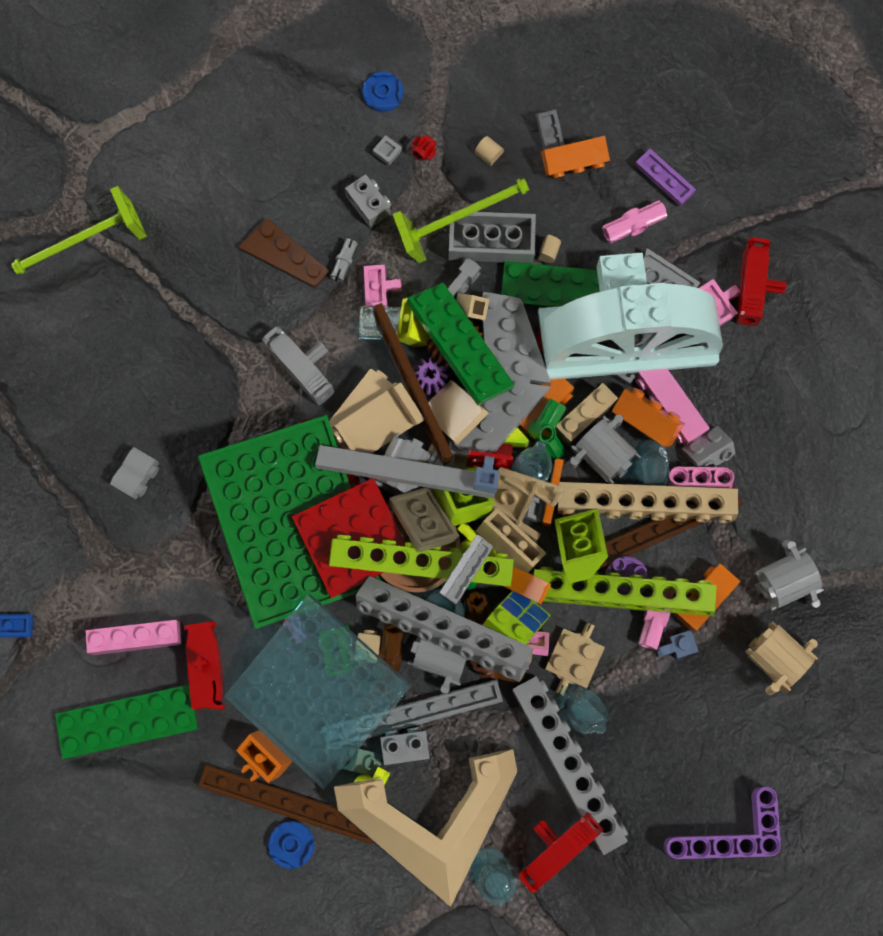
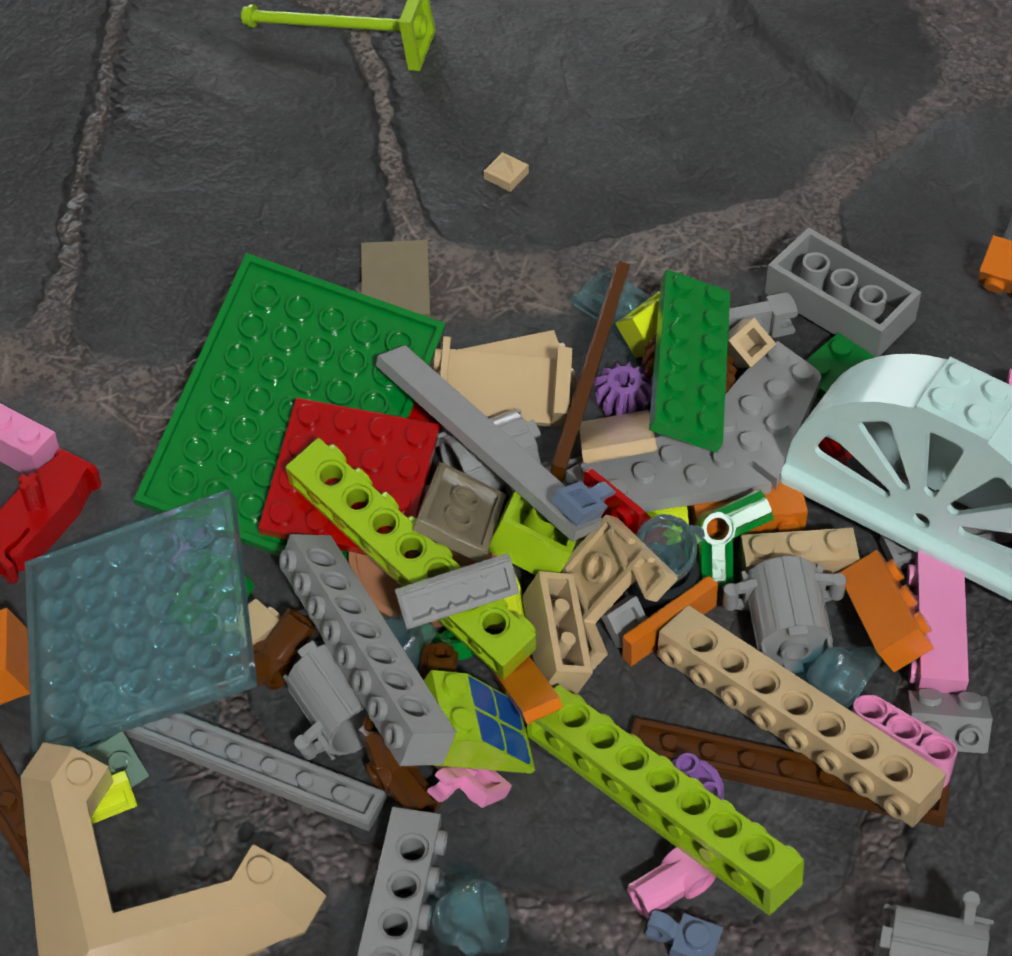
camera: 40 degrees right, 25 degrees down
(135, 473) = (168, 270): light grey brick -> none
(254, 275) = (506, 172): none -> tan tile
(257, 390) = (397, 273): none -> dark tan tile
(276, 248) = (562, 171): reddish brown wing -> none
(300, 365) = (471, 281): light grey piece -> none
(343, 260) = (628, 215): light grey pin -> none
(368, 200) = (716, 175): light grey brick -> none
(377, 286) = (649, 260): bright pink plate -> none
(382, 91) = (835, 89): blue tile -> none
(387, 150) = (787, 142): light grey plate -> none
(404, 747) = (184, 782): light grey brick -> none
(411, 235) = (733, 230): lime tile -> none
(423, 148) = (835, 161): red gear -> none
(488, 150) = (921, 212): tan brick -> none
(549, 249) = (914, 343): tan brick -> none
(575, 658) = (518, 845): tan plate -> none
(581, 544) = (640, 684): lime slope -> none
(725, 585) = (818, 903): orange brick -> none

